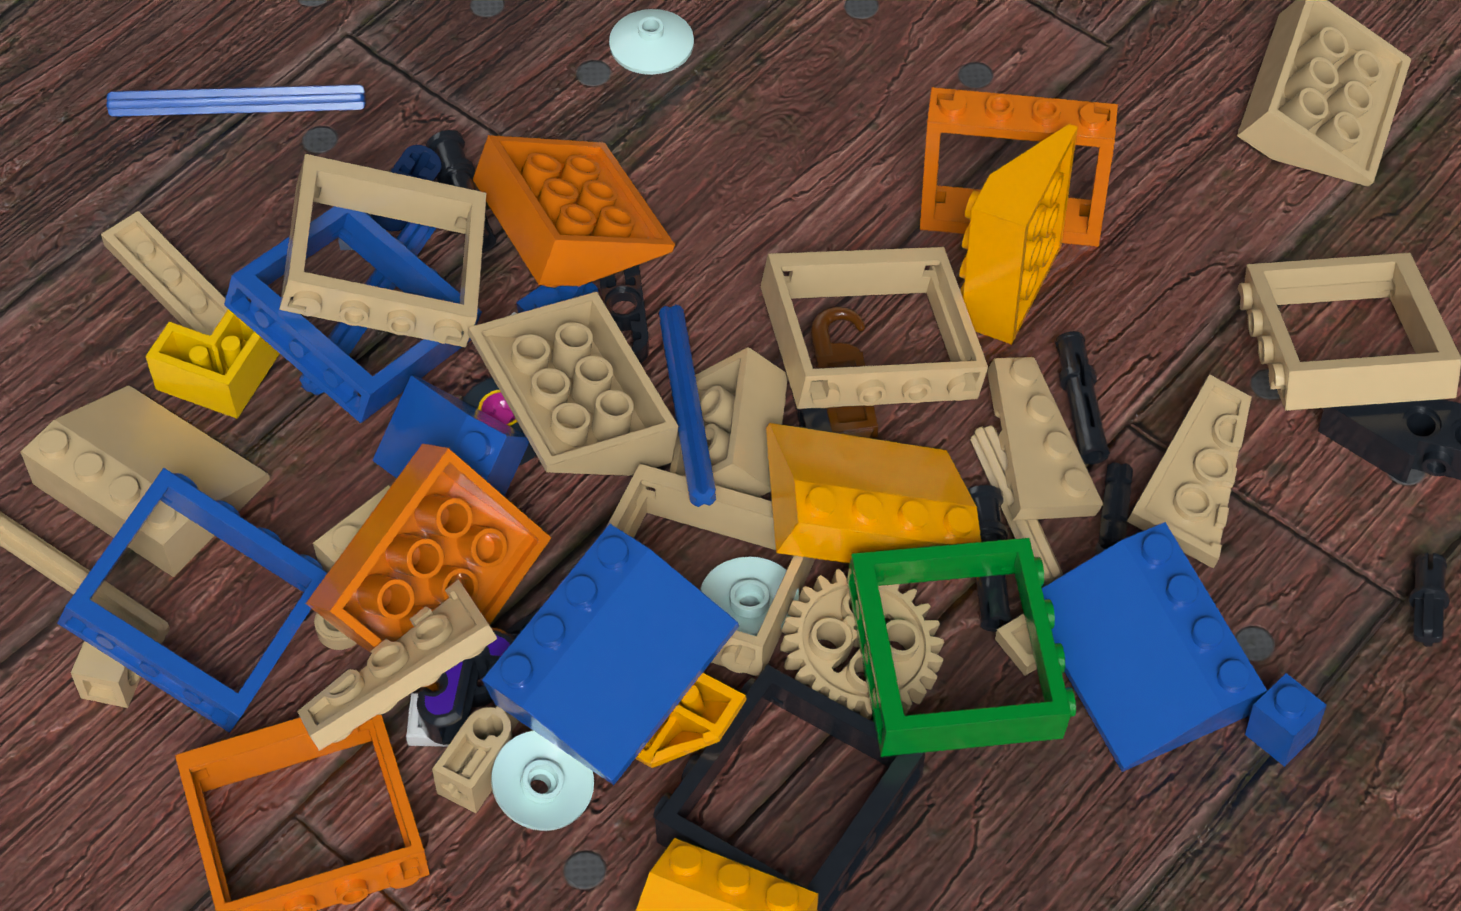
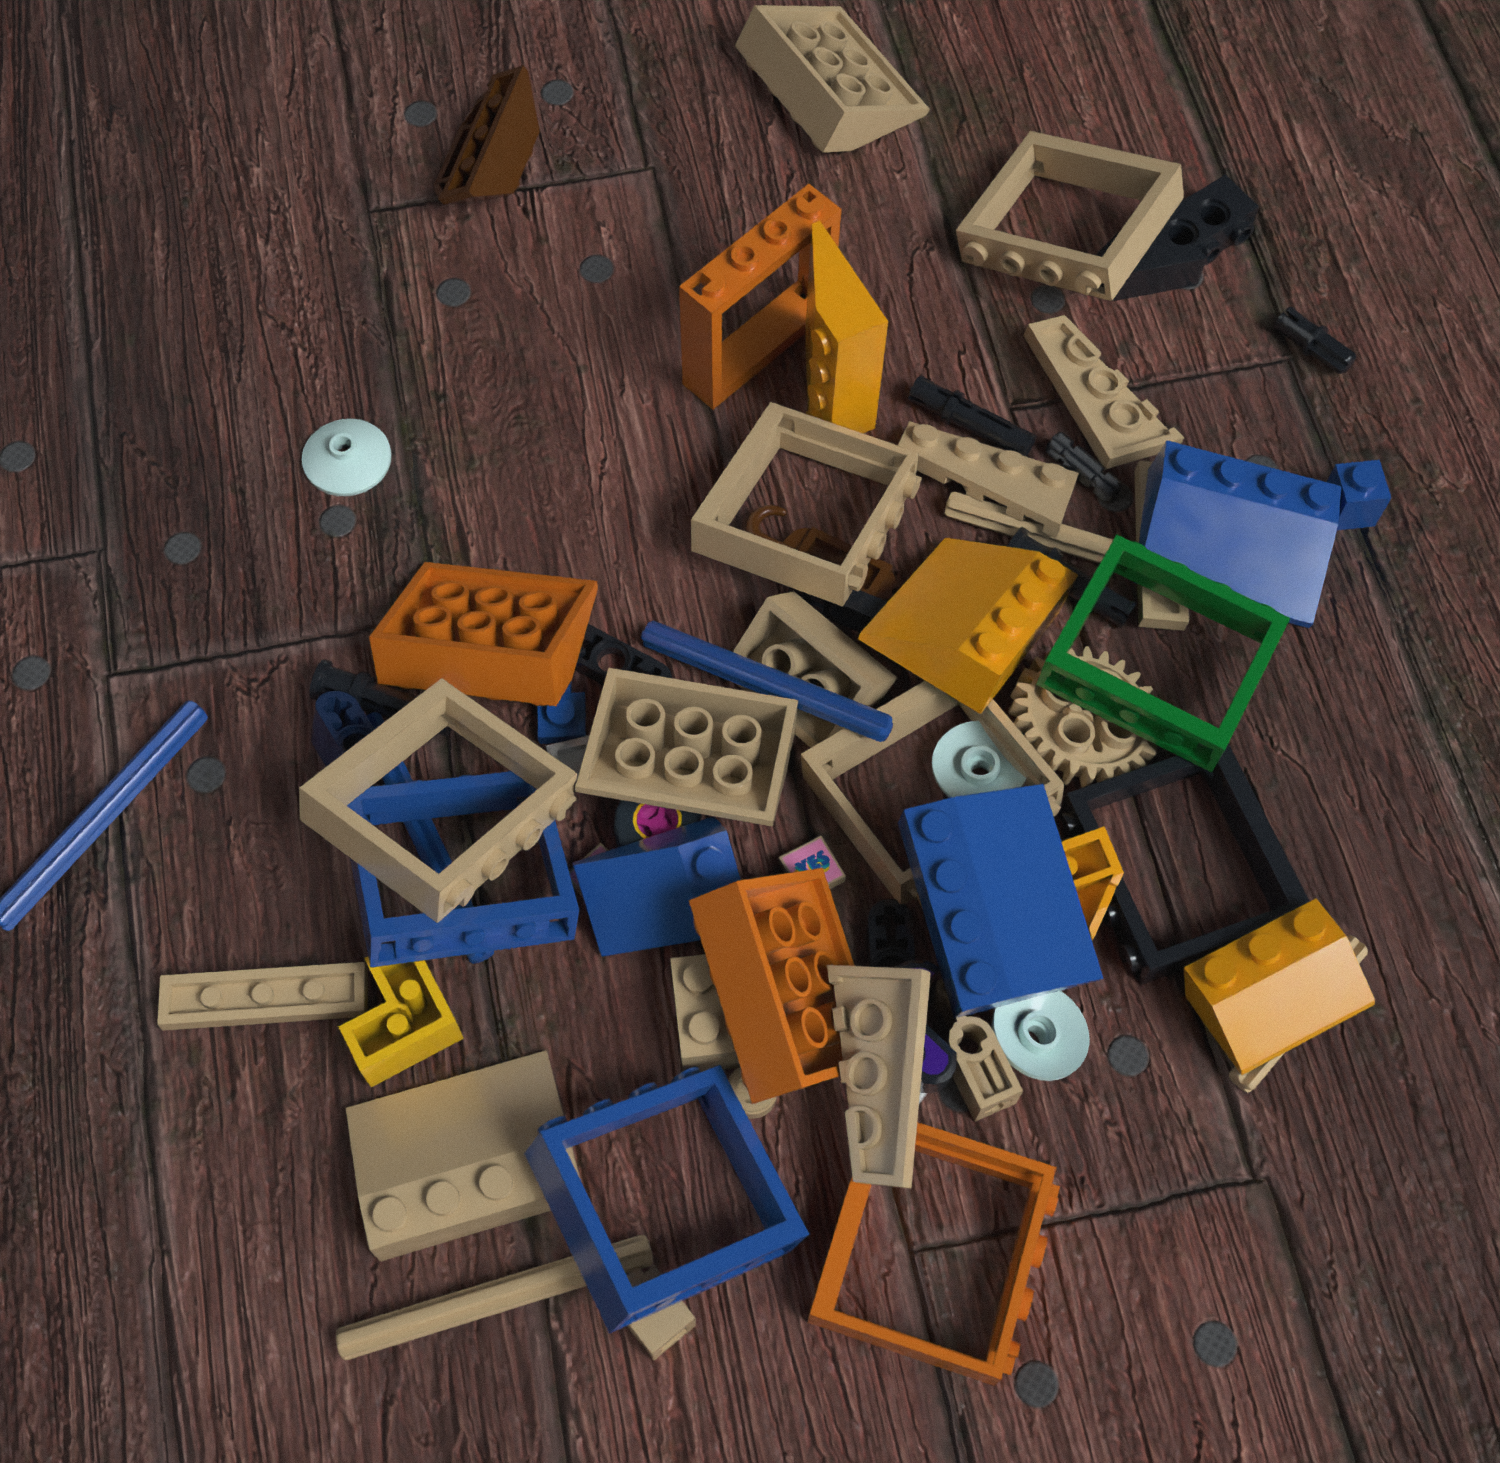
camera: 55 degrees left, 10 degrees up
(565, 547) = (813, 856): none -> tile

